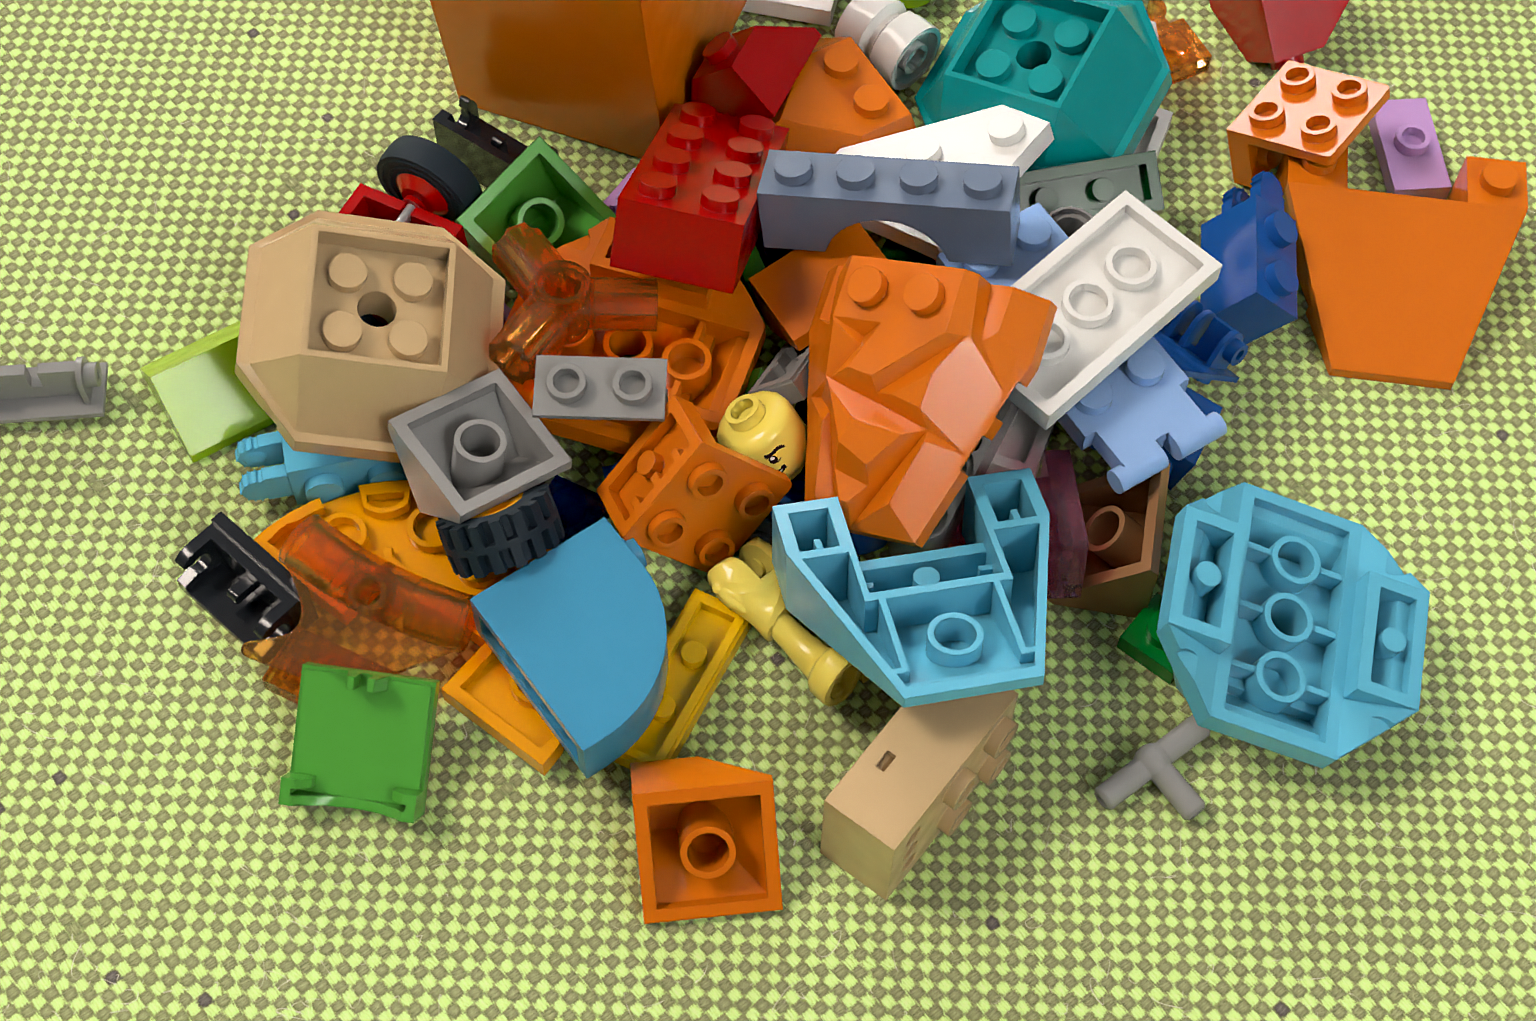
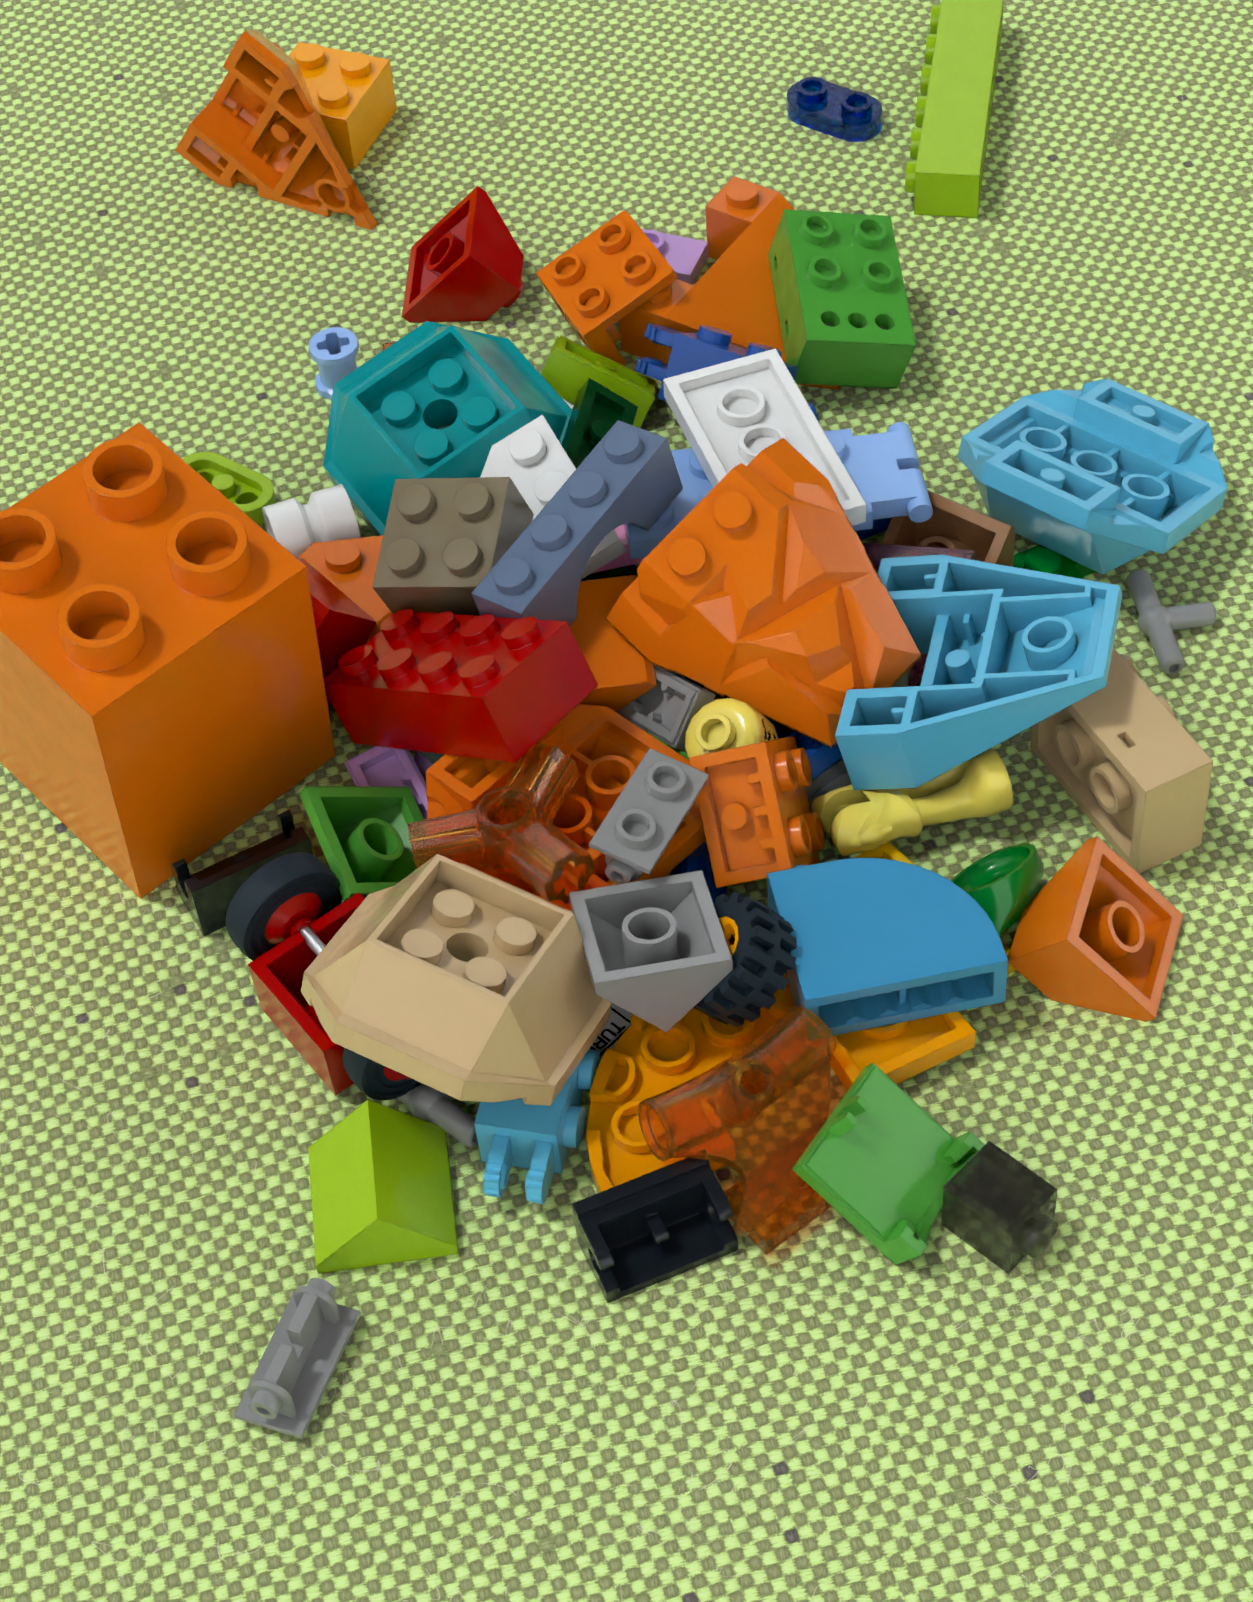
camera: 60 degrees left, 10 degrees down
(355, 854) = (1000, 1208): none -> clear smoke brick
(716, 726) = (1004, 883): none -> green piece
(852, 108) = (446, 540): none -> dark tan brick
(1193, 166) = (573, 364): none -> lime slope
(1411, 316) = (841, 299): none -> bright green piece

